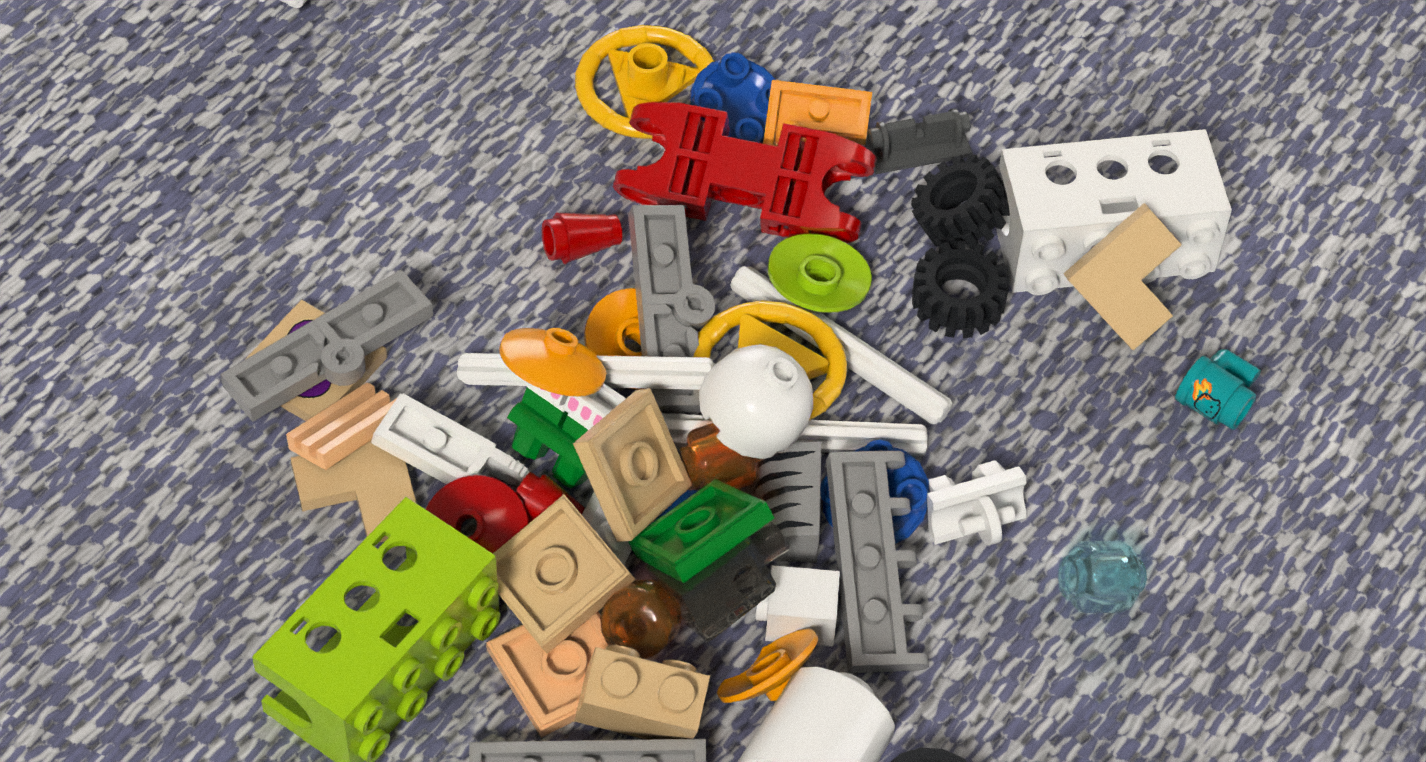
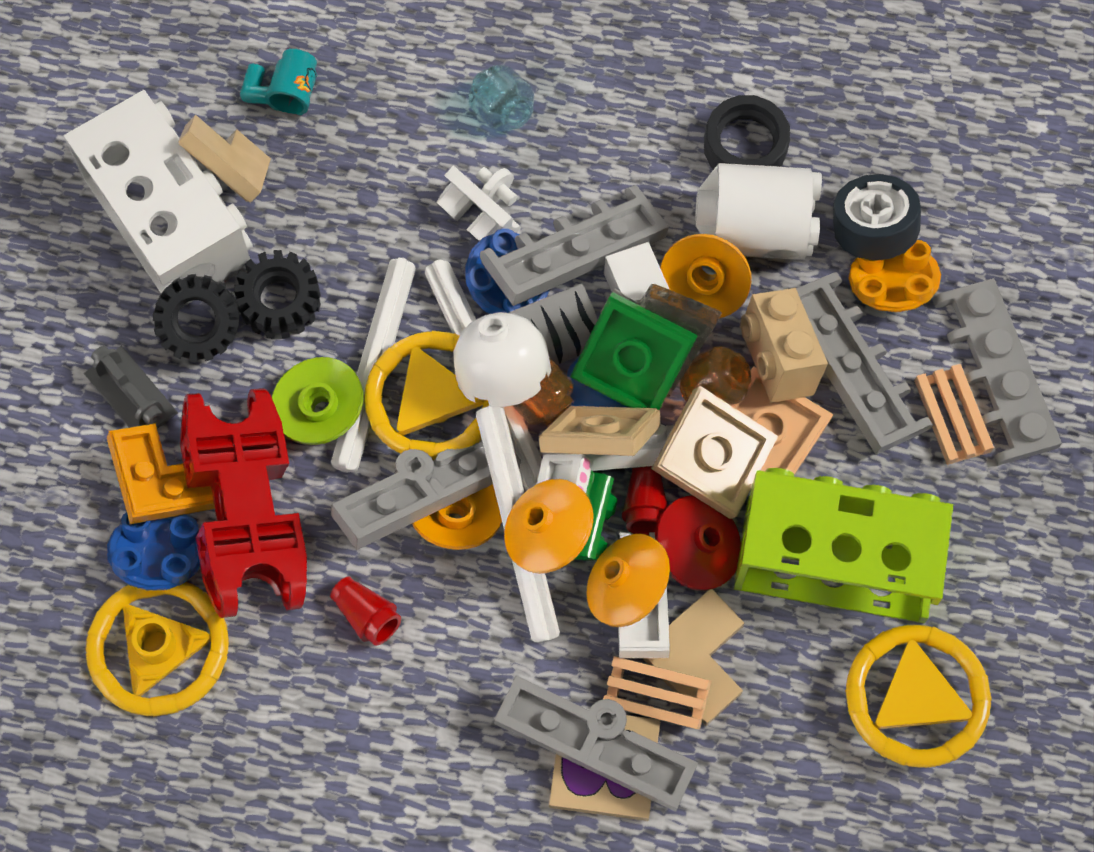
camera: 115 degrees left, 15 degrees up
(185, 641) = (919, 695): none -> yellow piece
(467, 431) = (628, 580): none -> light orange dish

